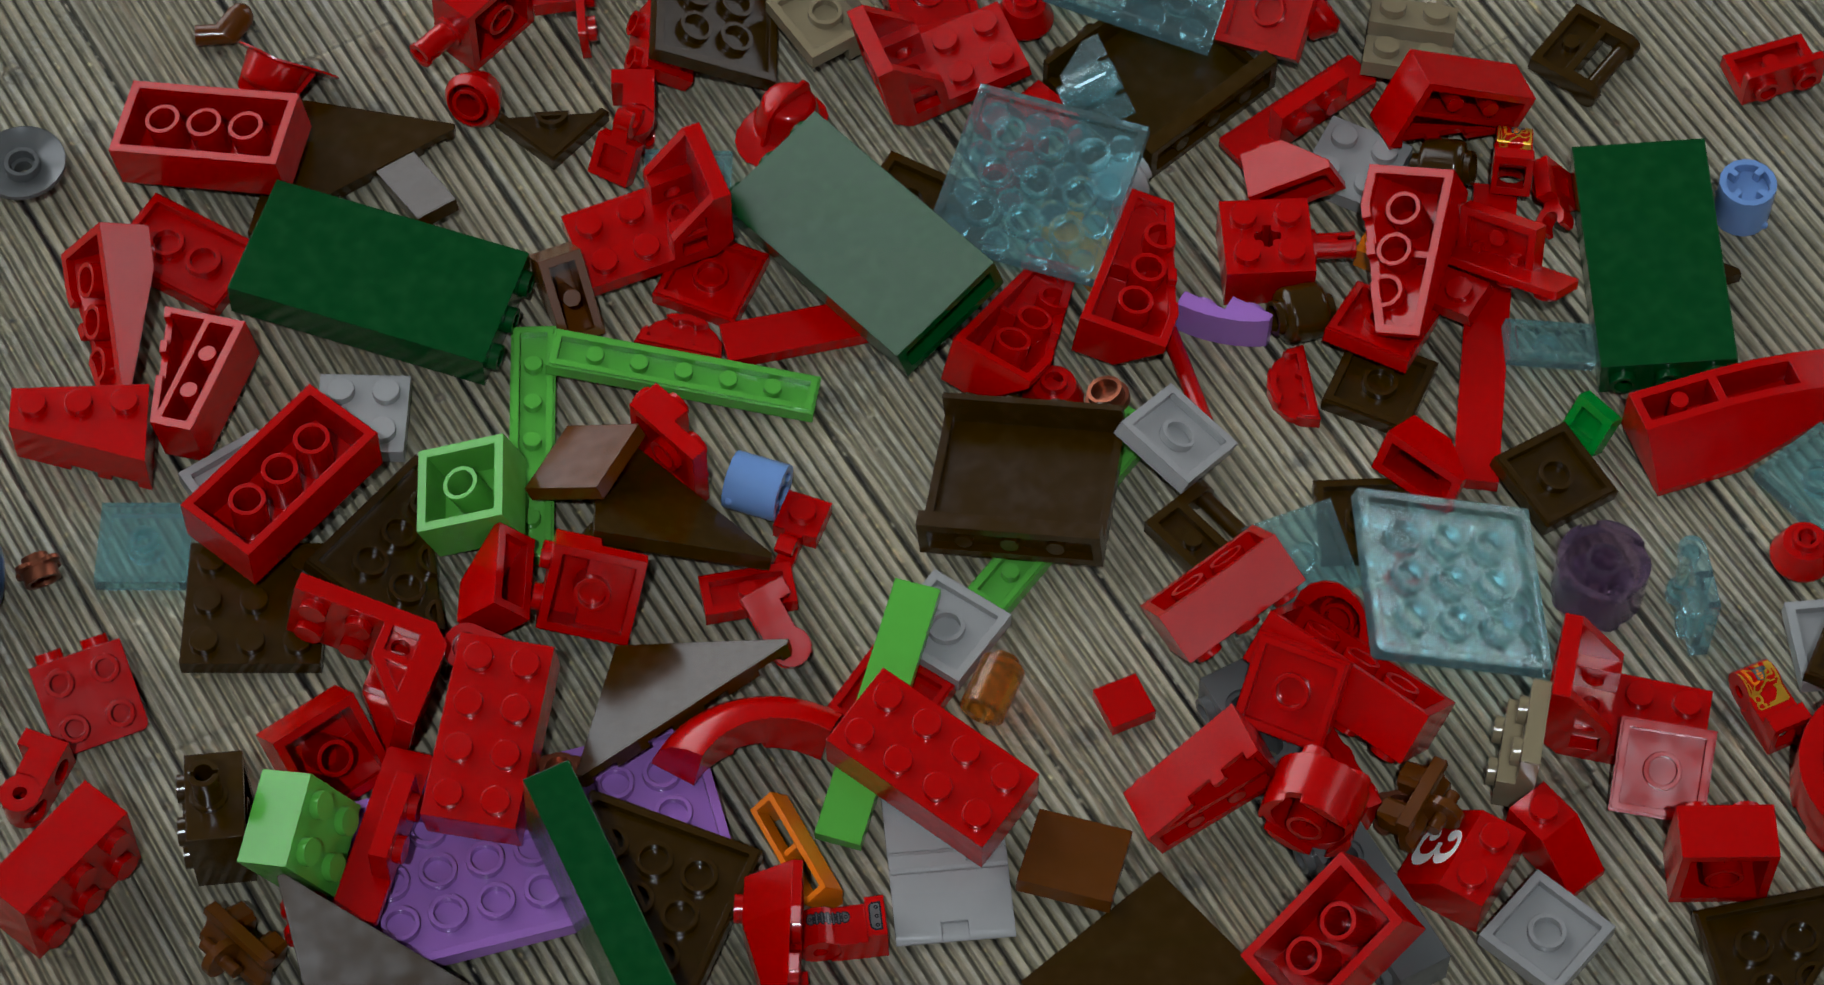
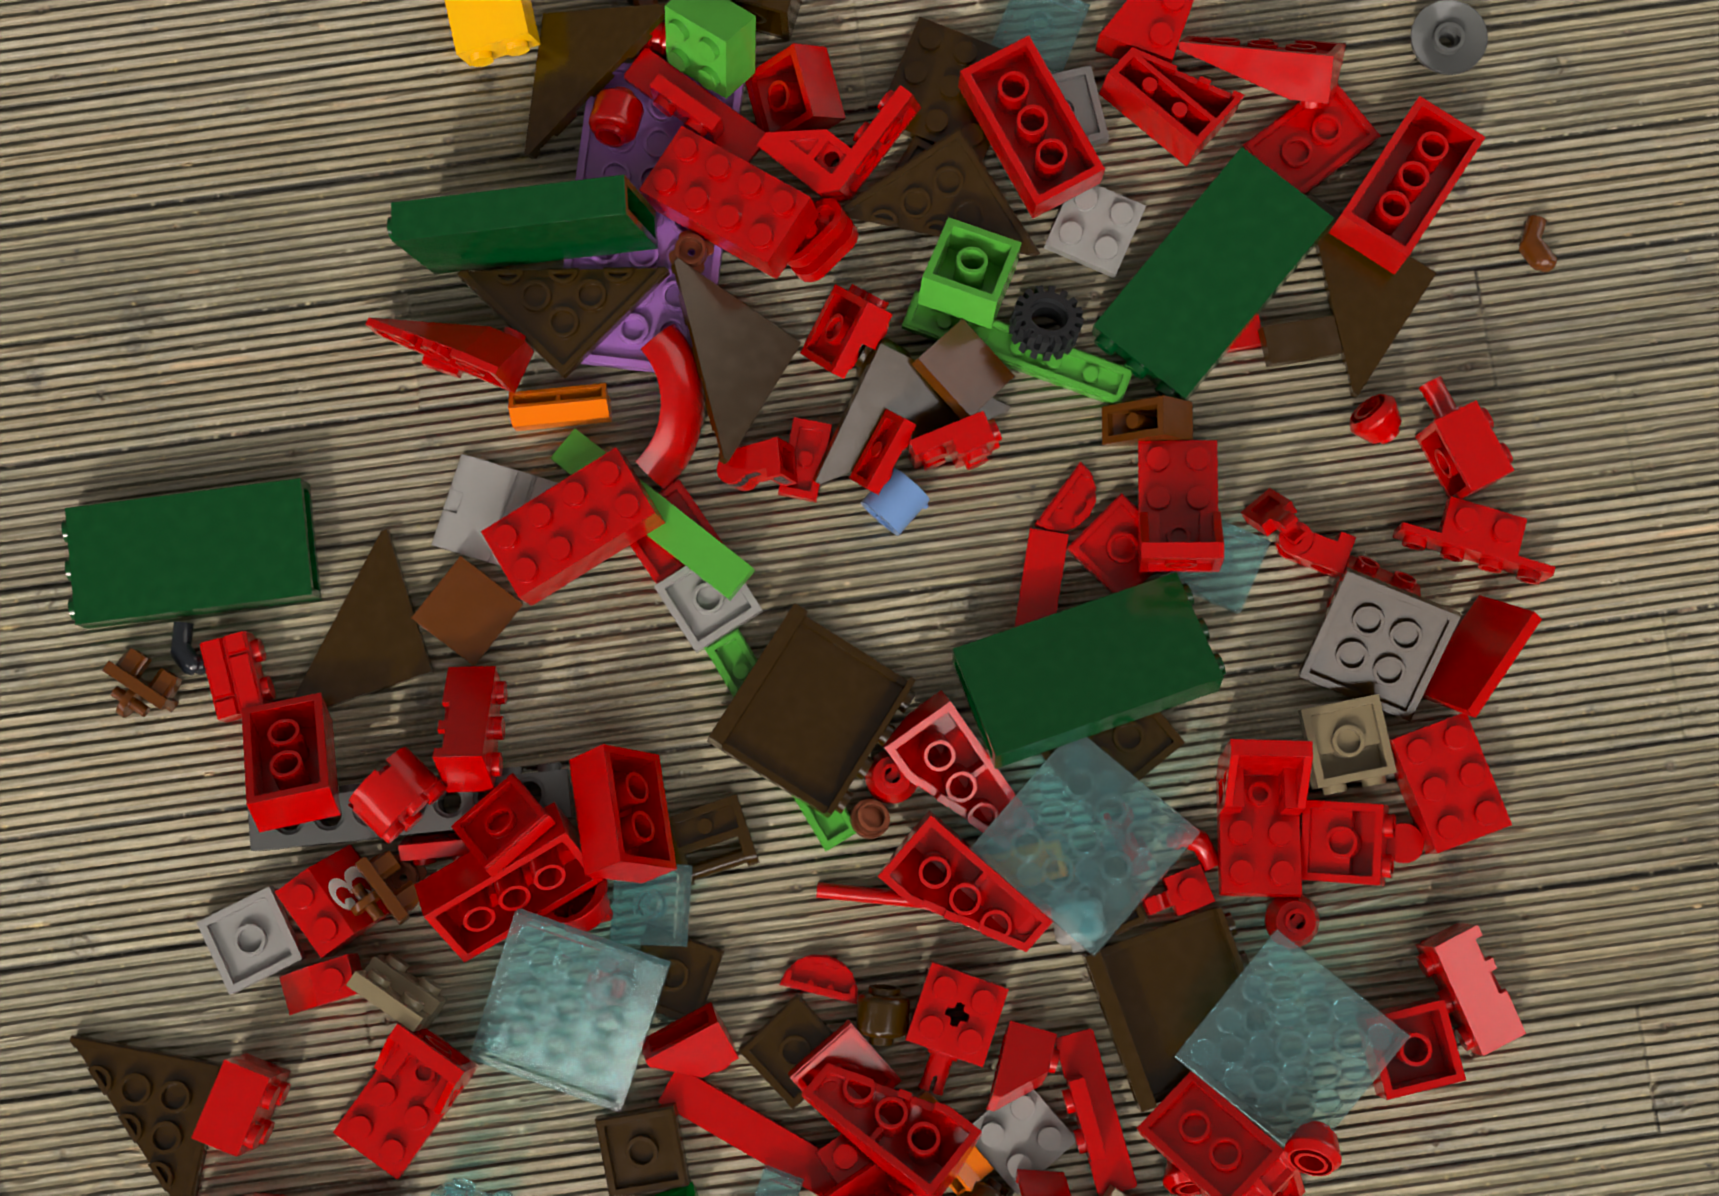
camera: 115 degrees right, 25 degrees up
(269, 73) = (1461, 268): red piece -> none
(429, 906) = (616, 116): none -> red head
(488, 395) = (1048, 305): none -> black tyre
(498, 582) = (883, 268): red slope -> none
(552, 134) = (1320, 475): dark brown tile -> none
(684, 373) = (1030, 487): bright green tile -> none
(712, 496) = (882, 451): none -> red plate
(774, 118) = (1256, 666): red piece -> none
(799, 524) = (856, 528): red plate -> none
(846, 932) = (482, 418): red leg -> none
(992, 687) = (639, 612): clear orange brick -> none
(1093, 83) = (1178, 940): clear light blue brick -> none
(1124, 704) = (588, 709): red tile -> none
(1175, 438) = (799, 852): light grey plate -> none
(1236, 325) = (895, 961): medium lavender slope -> none
(1601, 574) = (528, 1163): clear purple brick -> none
(1660, 768) = (342, 1100): tile -> none

